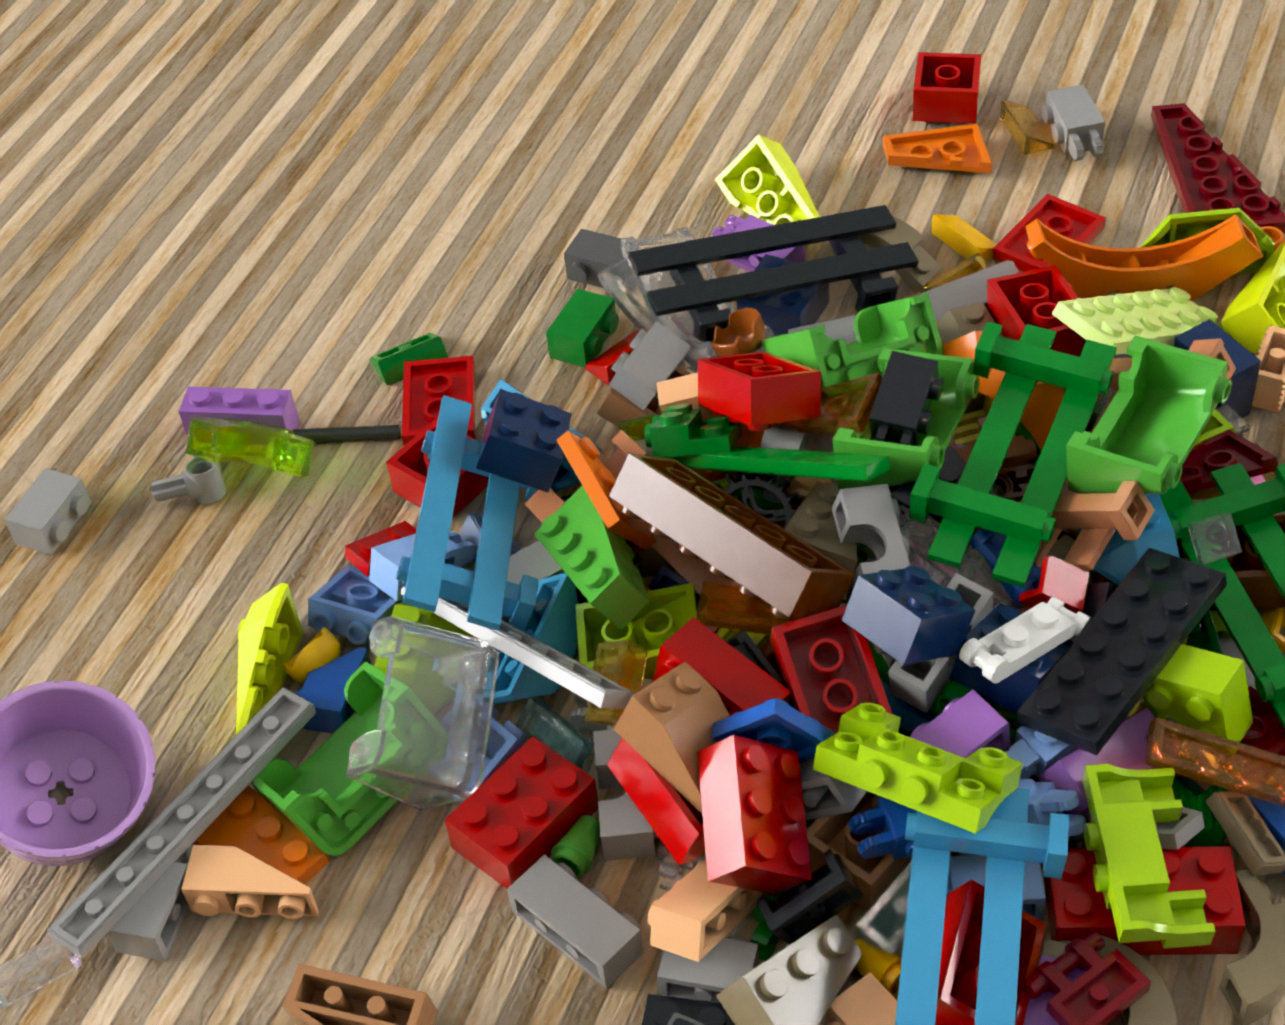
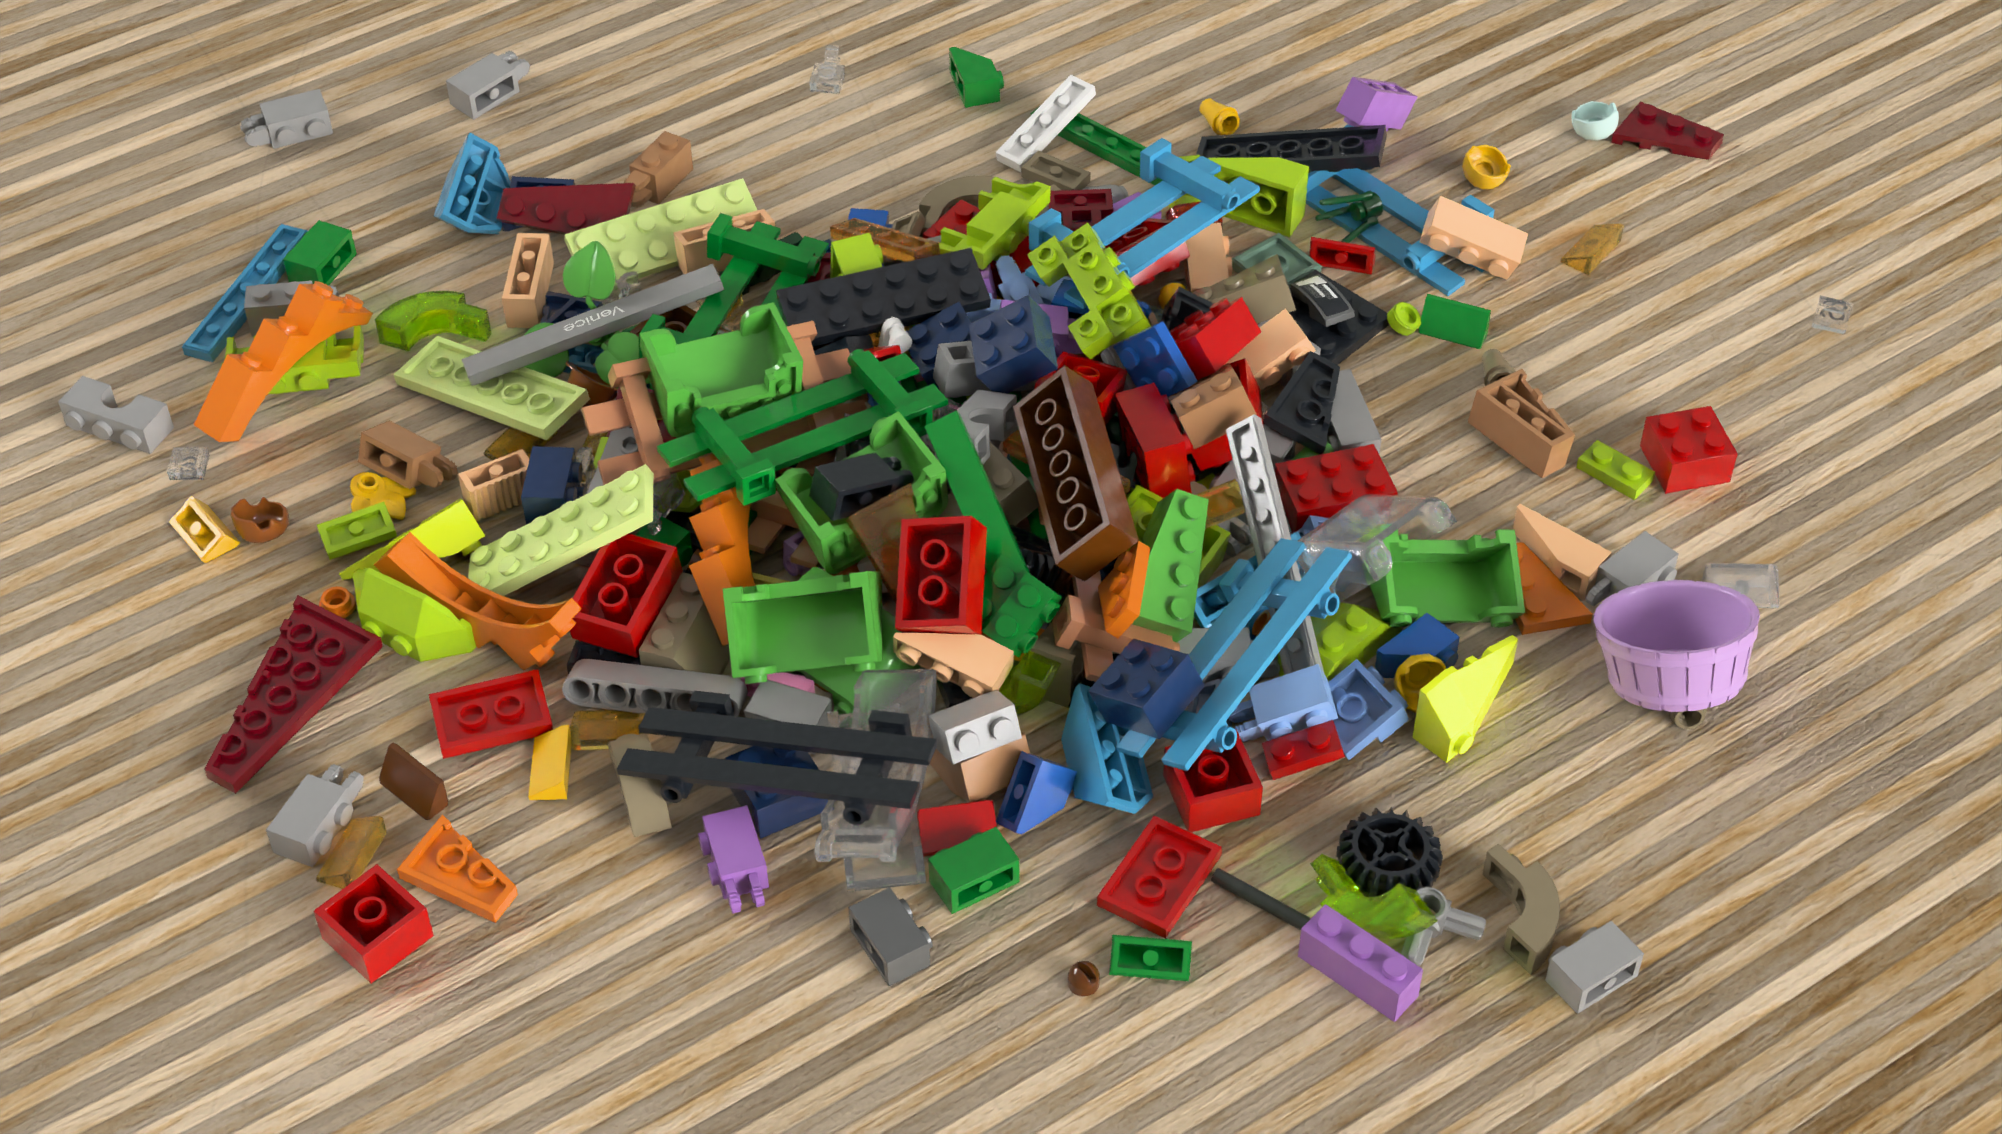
camera: 150 degrees left, 0 degrees up
(124, 539) = (1537, 901): none -> dark tan arch
(180, 823) = (1581, 590): light grey tile -> none
(260, 505) = (1386, 843): none -> black gear
(447, 318) = (1078, 981): none -> reddish brown hinge
(578, 393) = (1034, 792): none -> blue slope
(611, 866) = (1306, 403): none -> black wing
(741, 335) = (887, 685): dark orange hair -> none
(767, 184) = (658, 922): neon yellow wedge -> none
(1018, 642) = (953, 312): white plate -> none
(1042, 176) = (413, 782): none -> reddish brown slope

